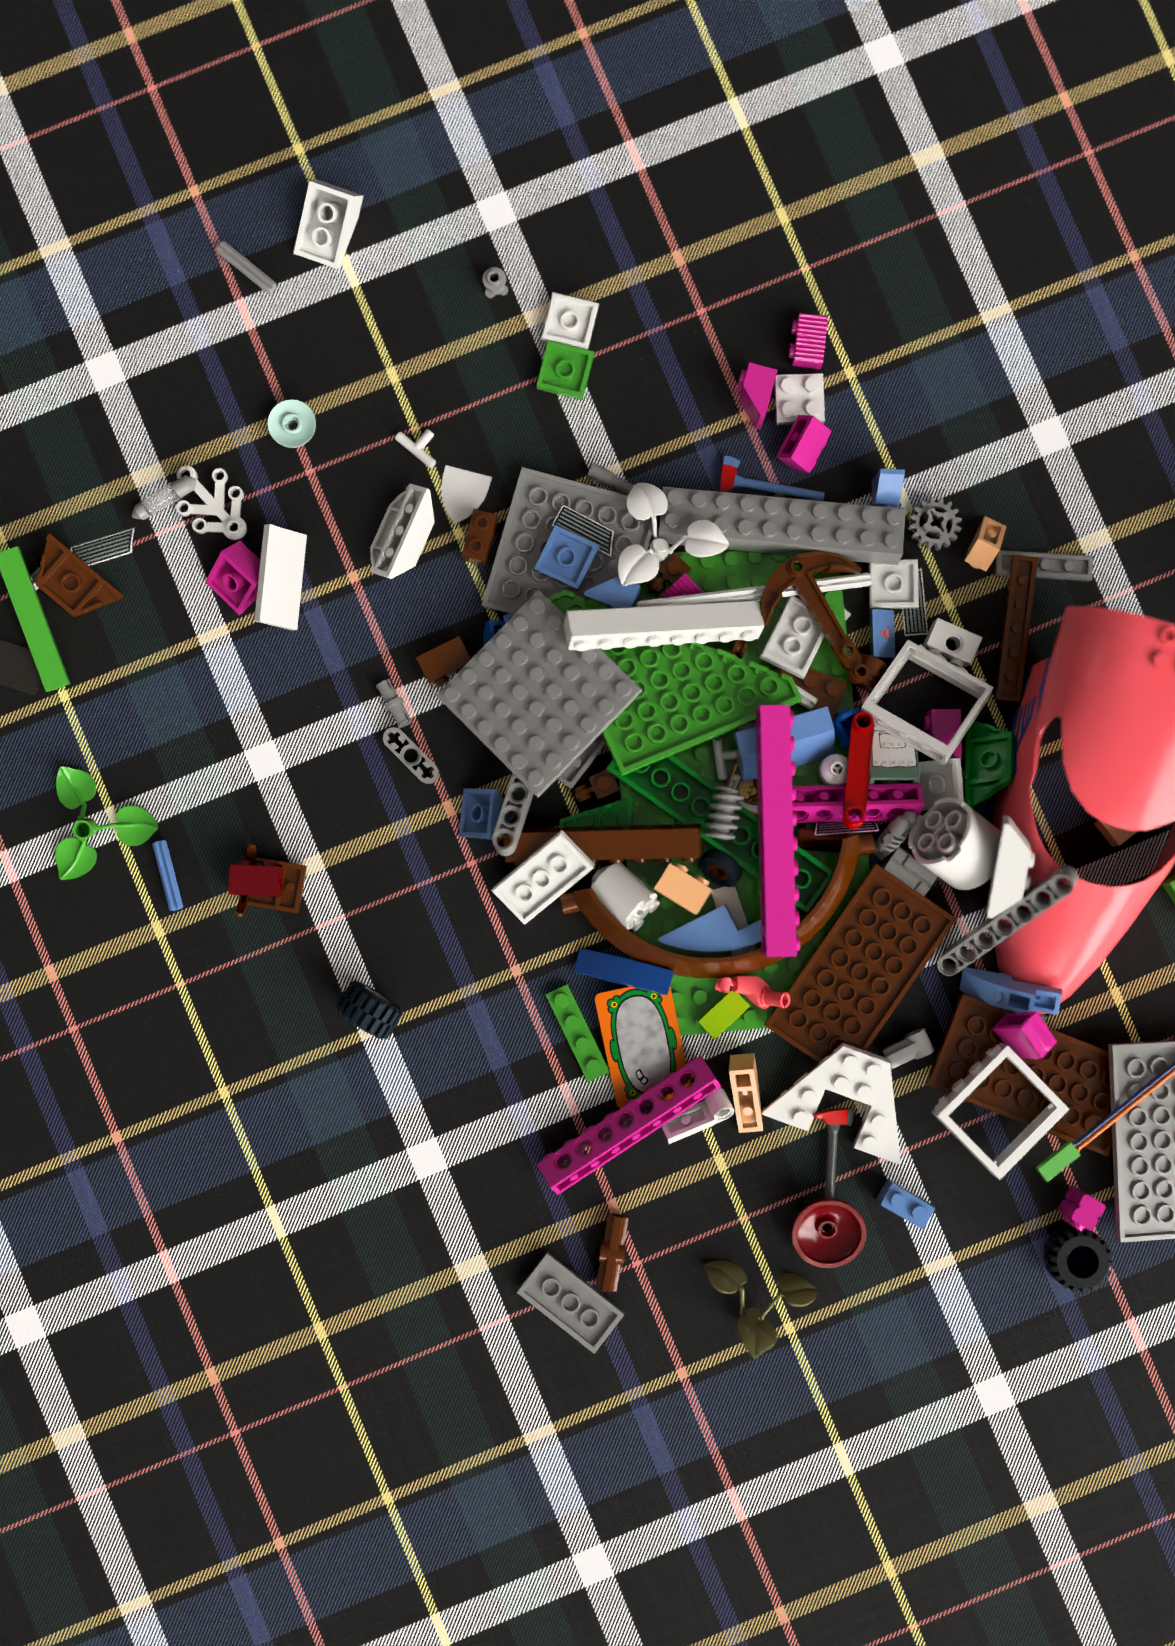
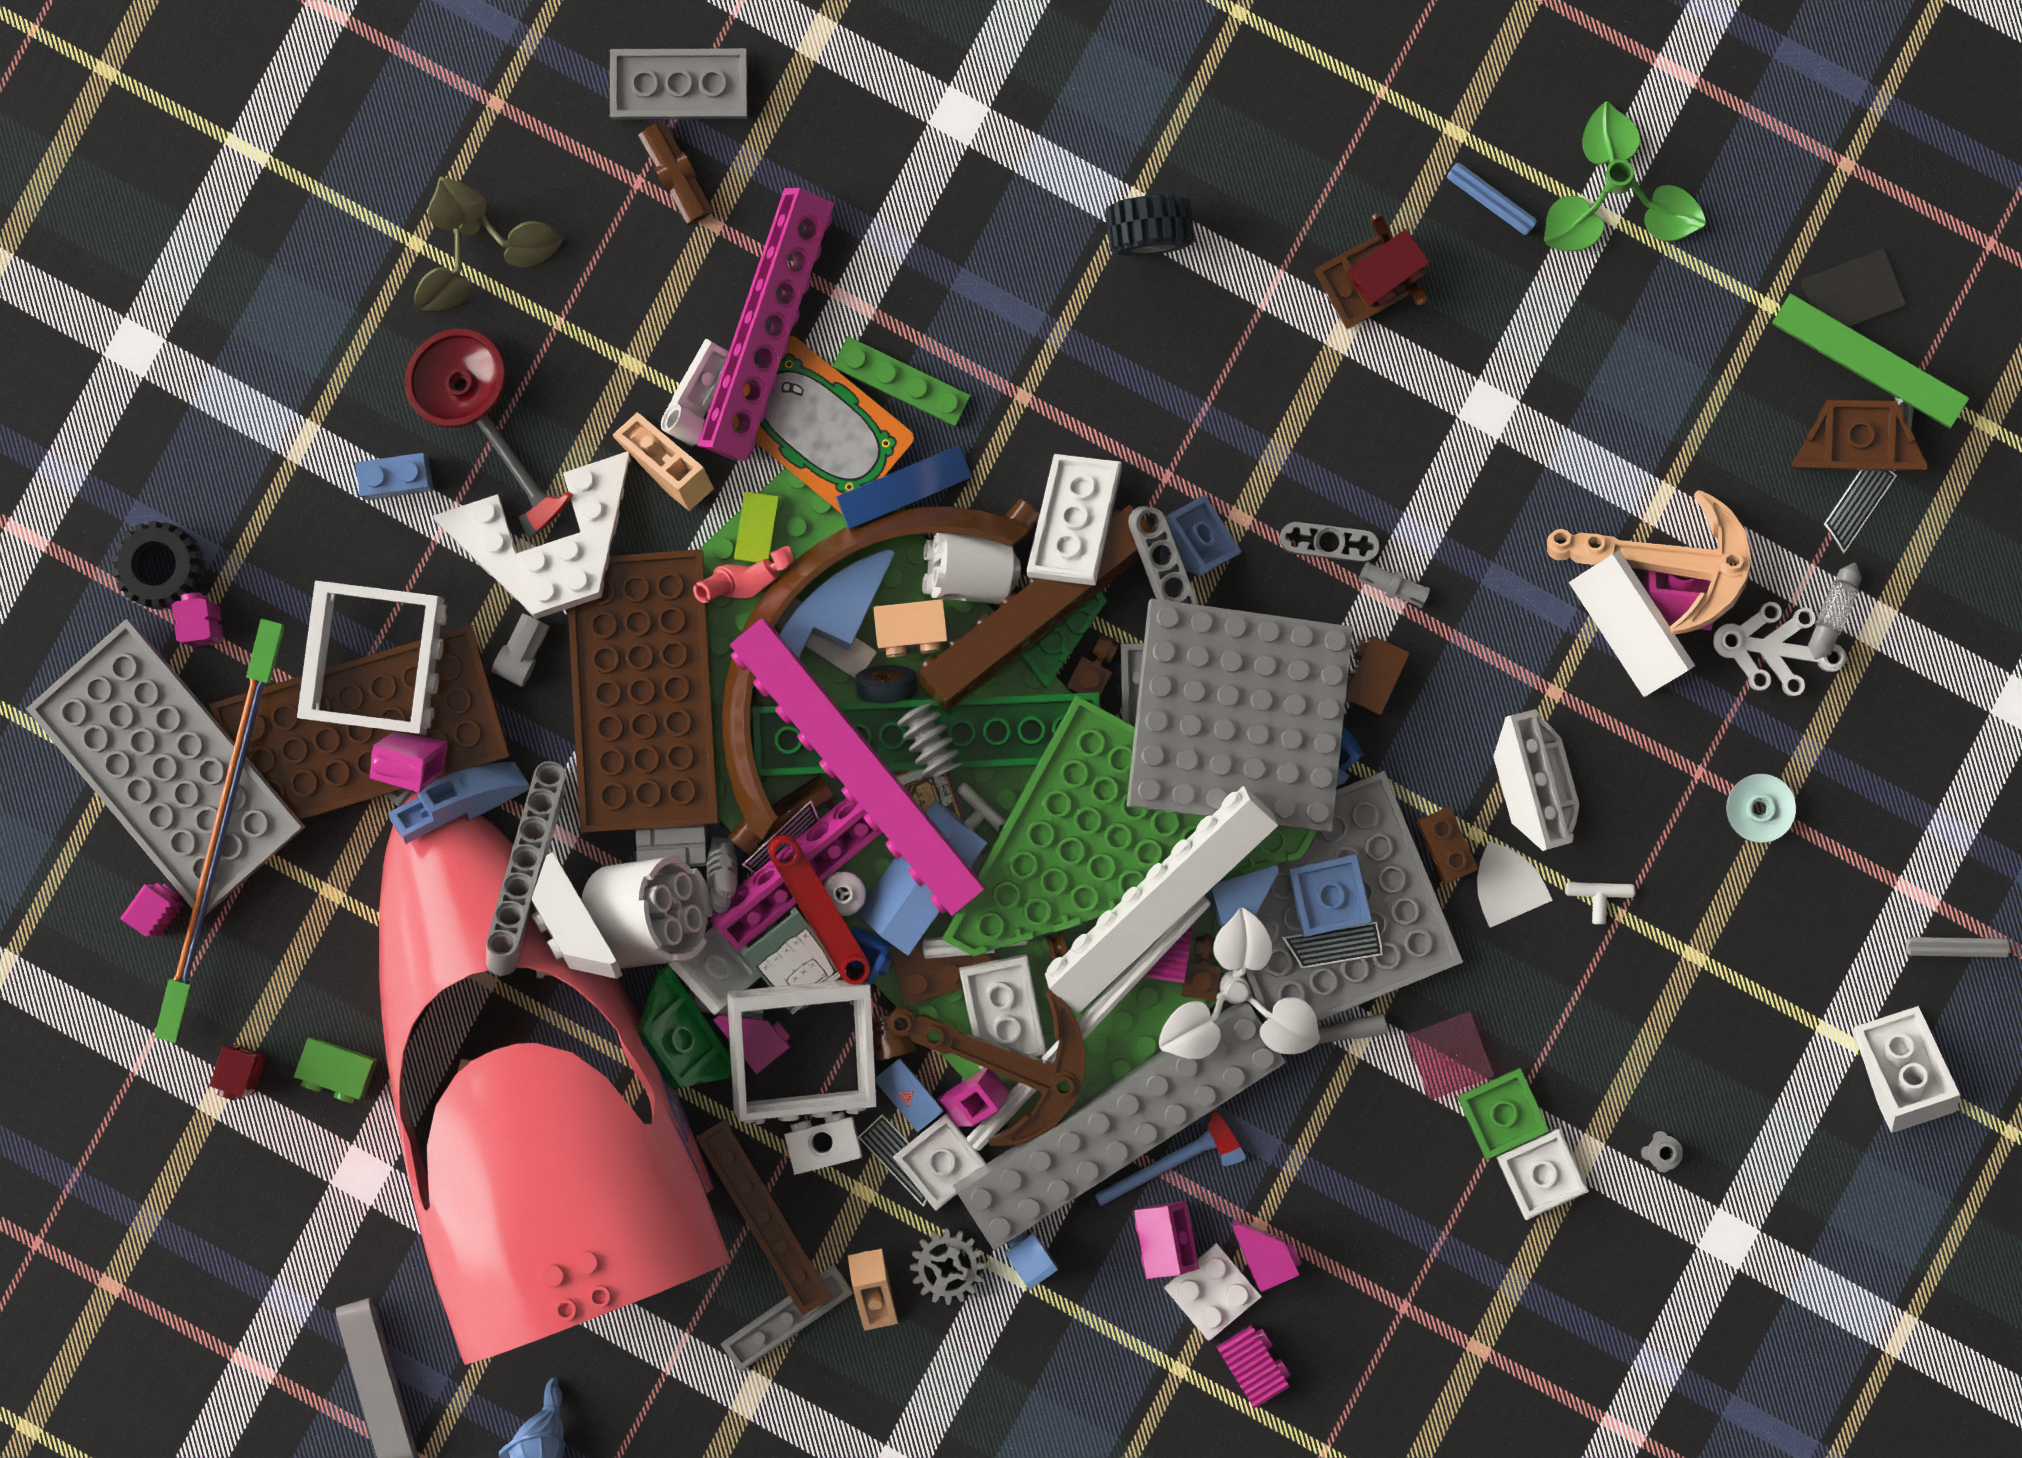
camera: 145 degrees right, 0 degrees up
(212, 575) = (1699, 563): none -> light nougat piece
(569, 424) = (1449, 1055): none -> clear pink plate
(849, 600) = (974, 1098): none -> dark pink slope

